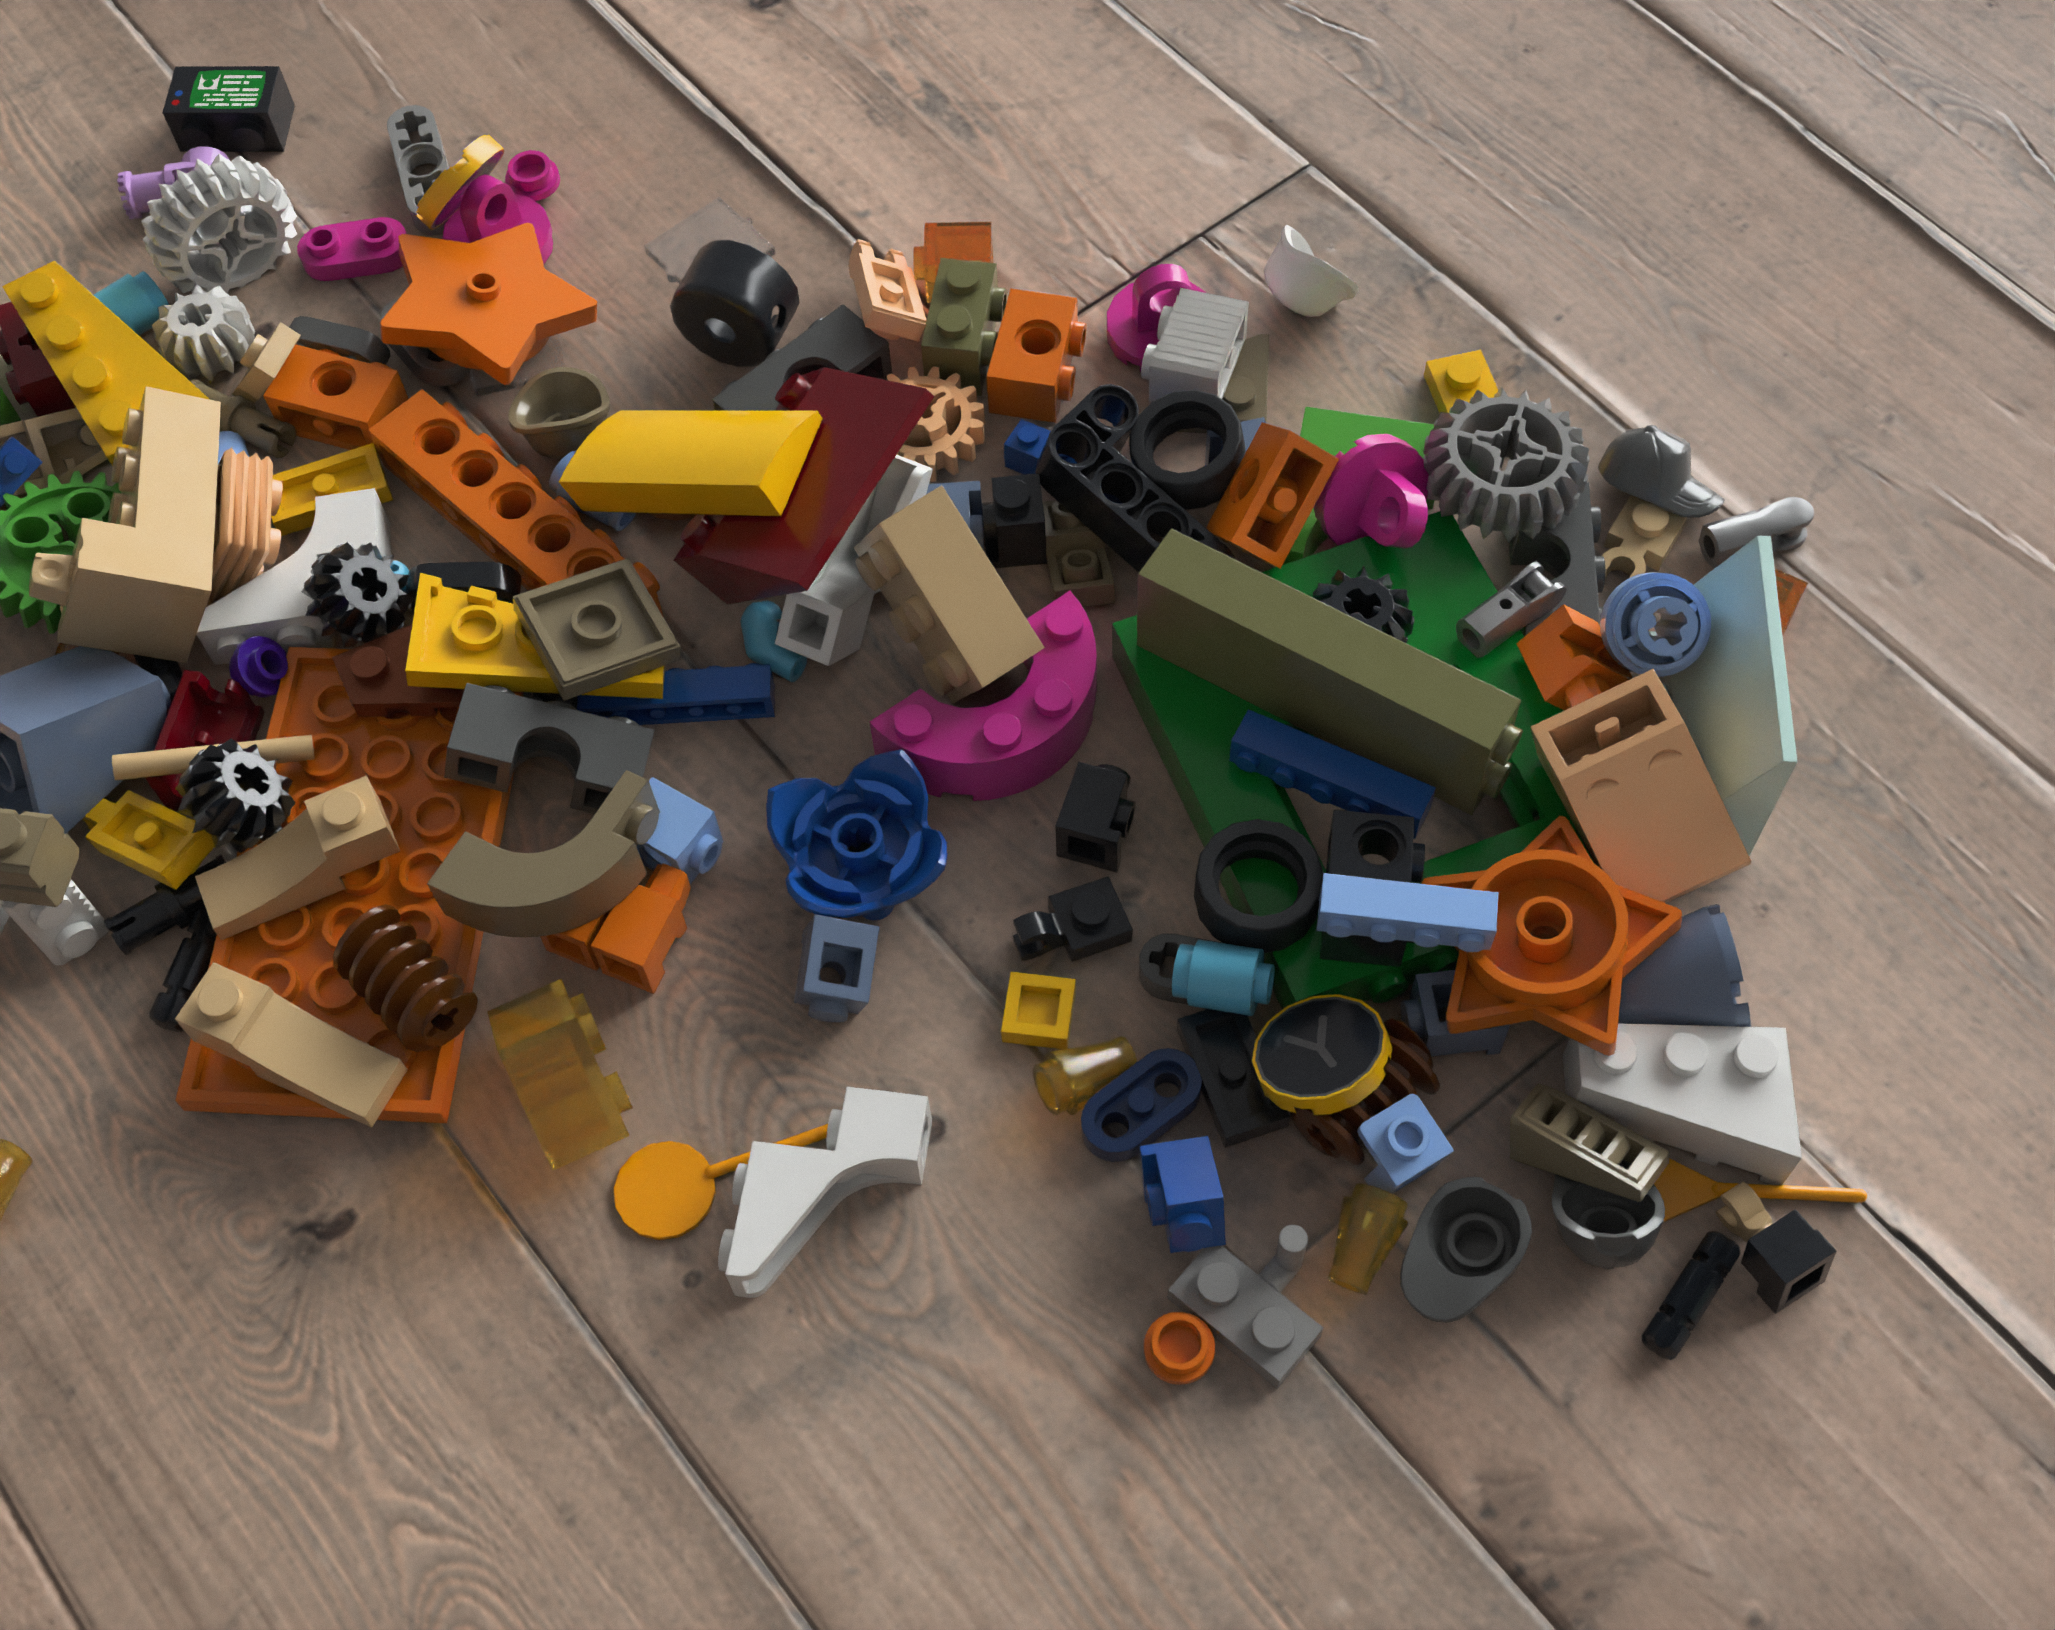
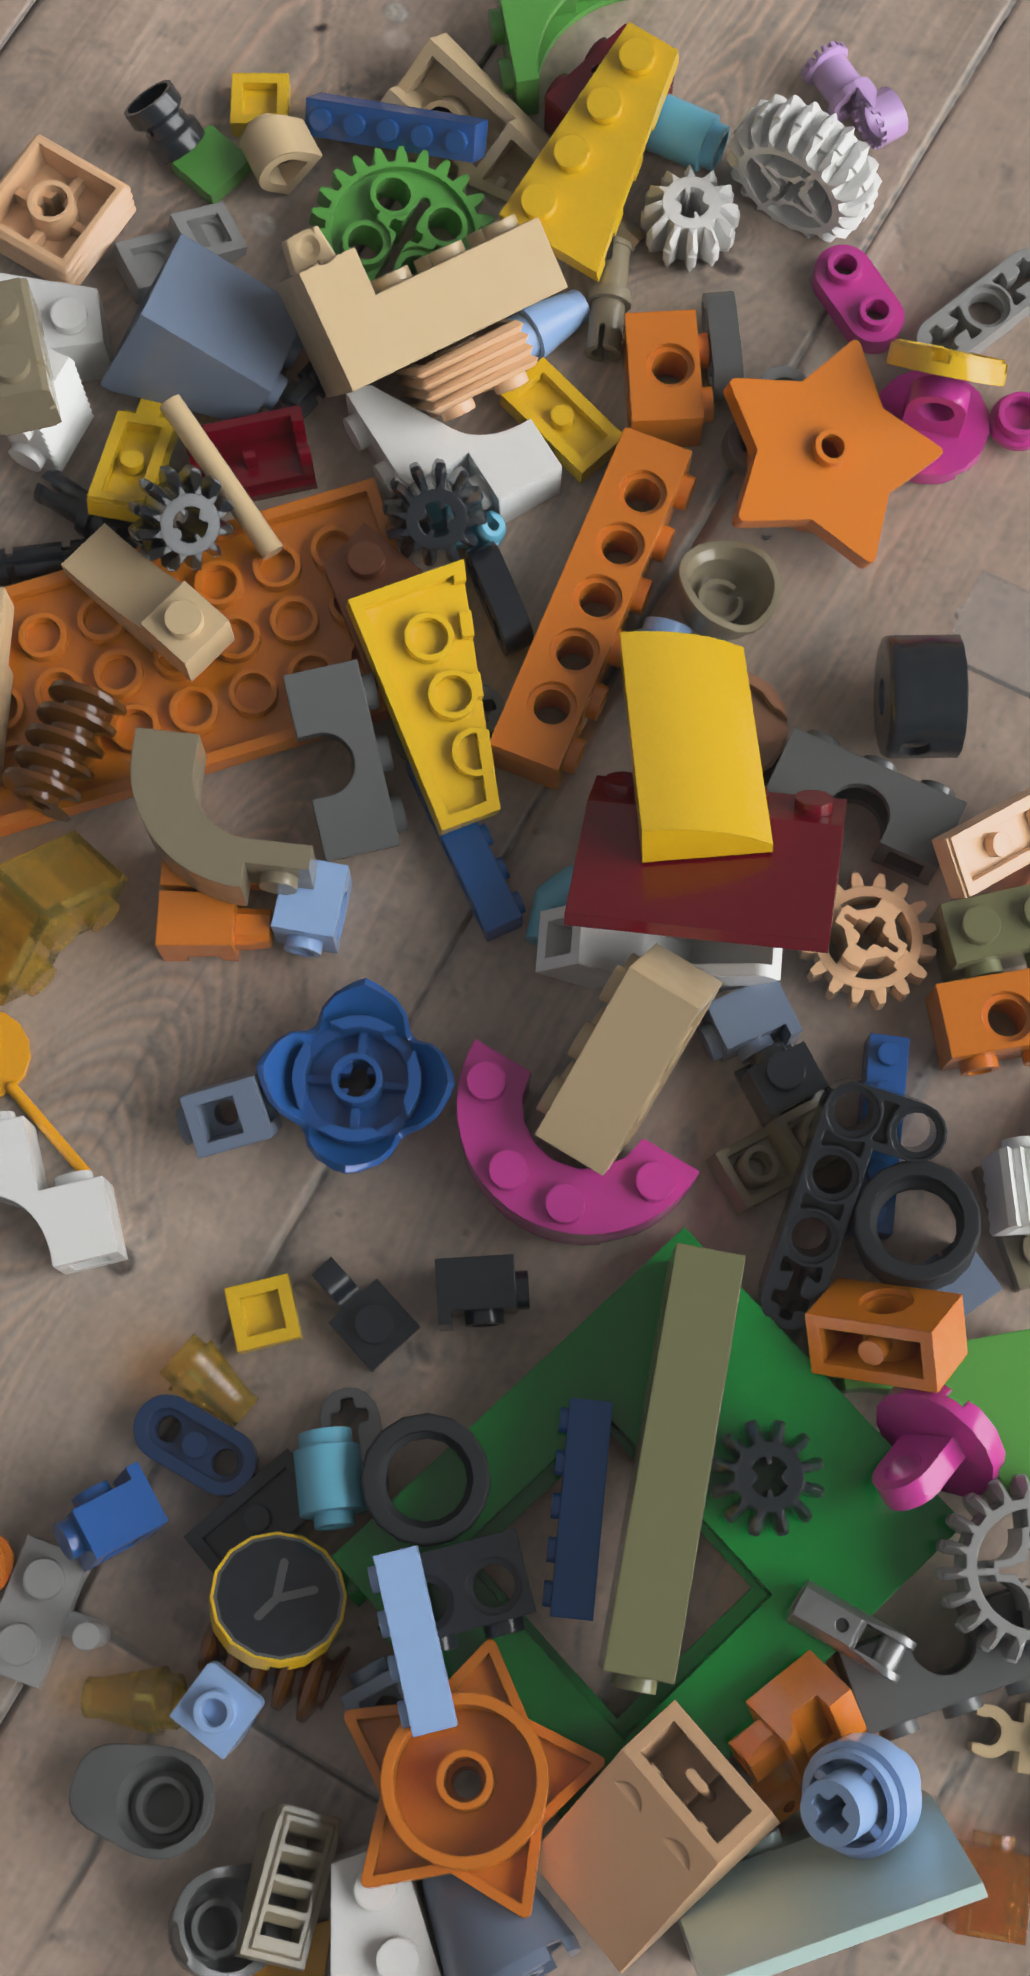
camera: 65 degrees right, 15 degrees up
(229, 108) = (969, 94): black brick -> none
(247, 667) = (336, 450): dark purple plate -> none
(264, 361) = (663, 294): tan plate -> none
(596, 628) = (470, 744): dark tan tile -> none

